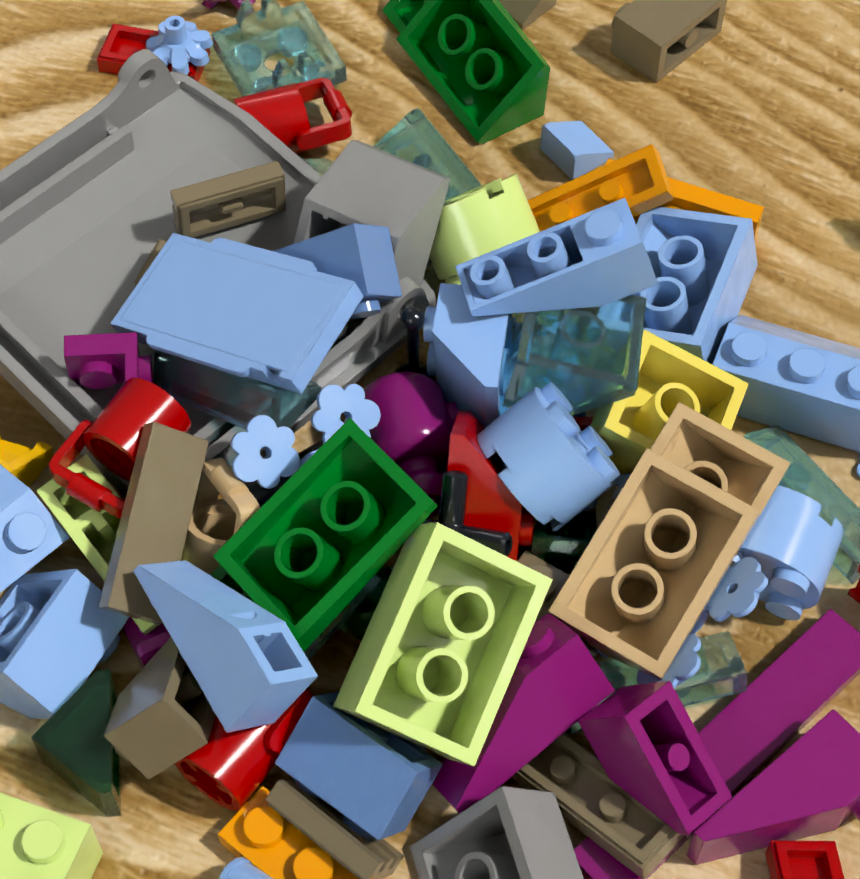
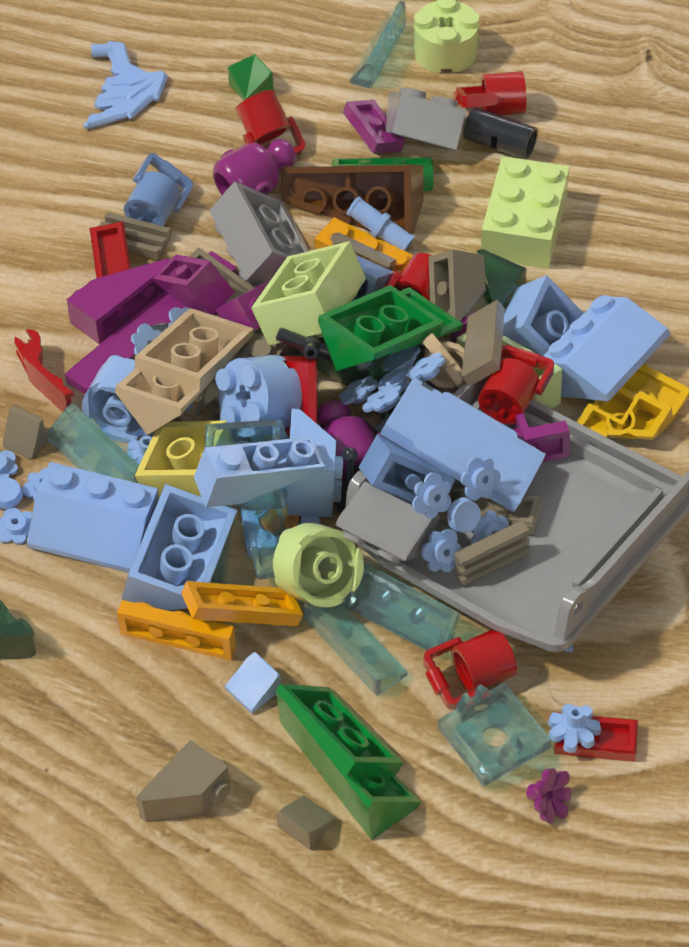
camera: 175 degrees right, 5 degrees down
(231, 645) = (429, 285): light blue slope -> none
(261, 204) = (462, 514): none -> light blue plant

